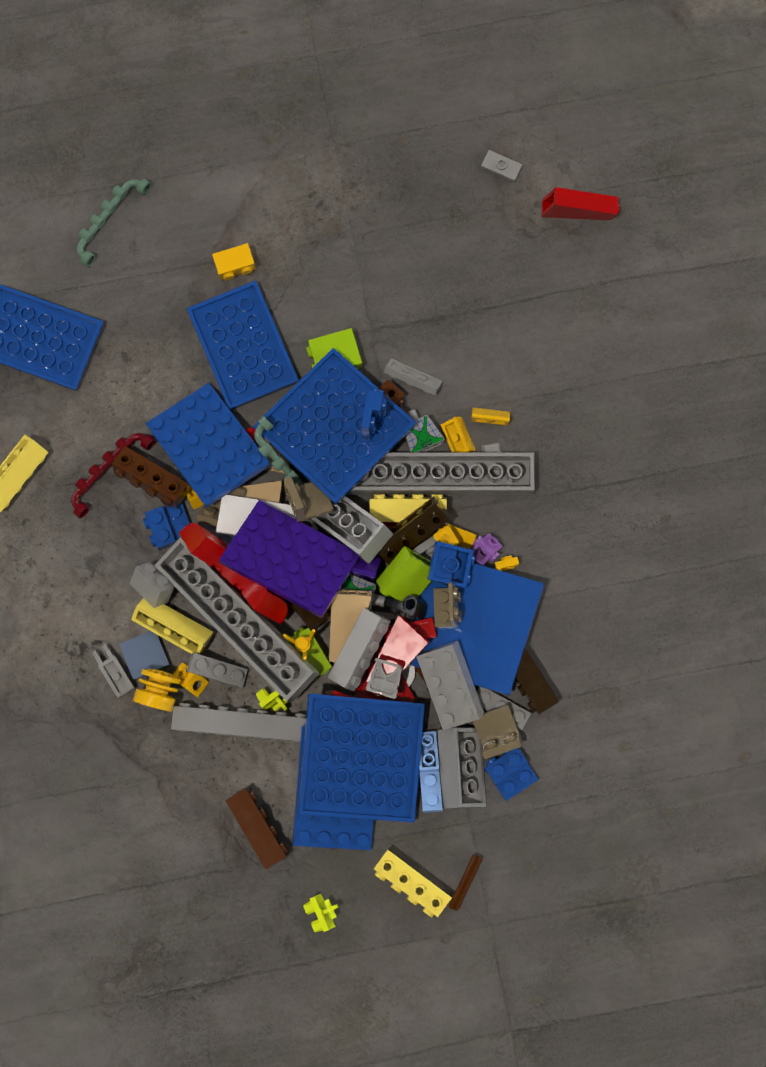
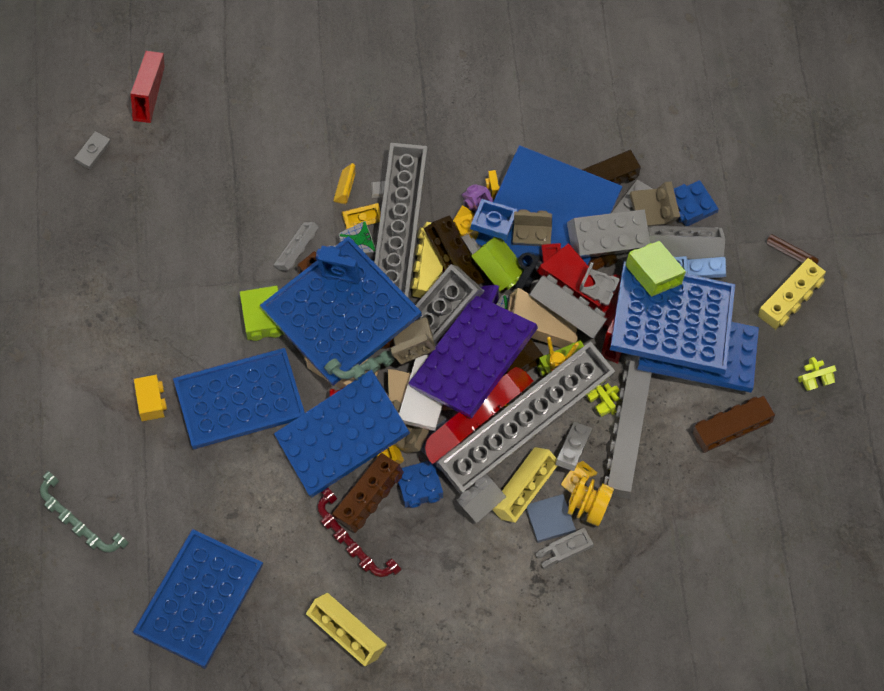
camera: 85 degrees left, 15 degrees down
(414, 735) = (655, 268): none -> lime brick

